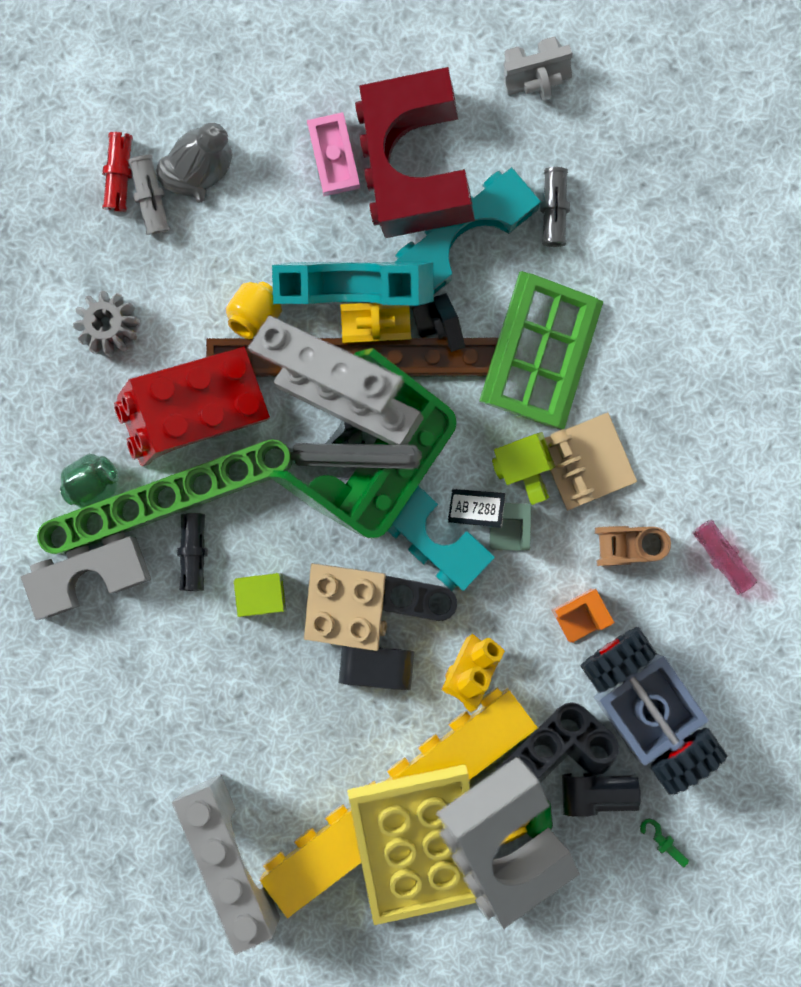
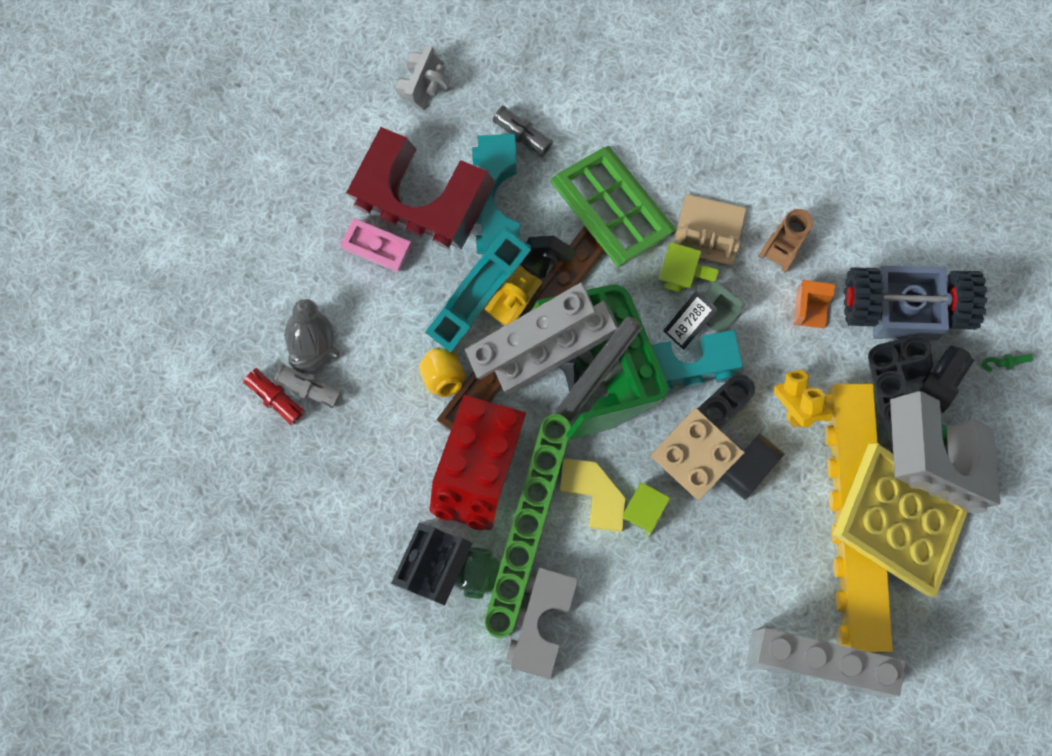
camera: 55 degrees left, 10 degrees down
(65, 435) = (432, 563): none -> black slope
(119, 320) = (364, 488): light grey gear -> none
(192, 552) = (579, 536): black pin -> none
(254, 523) = (590, 480): none -> light yellow tile
(724, 557) = (837, 188): clear pink pin -> none

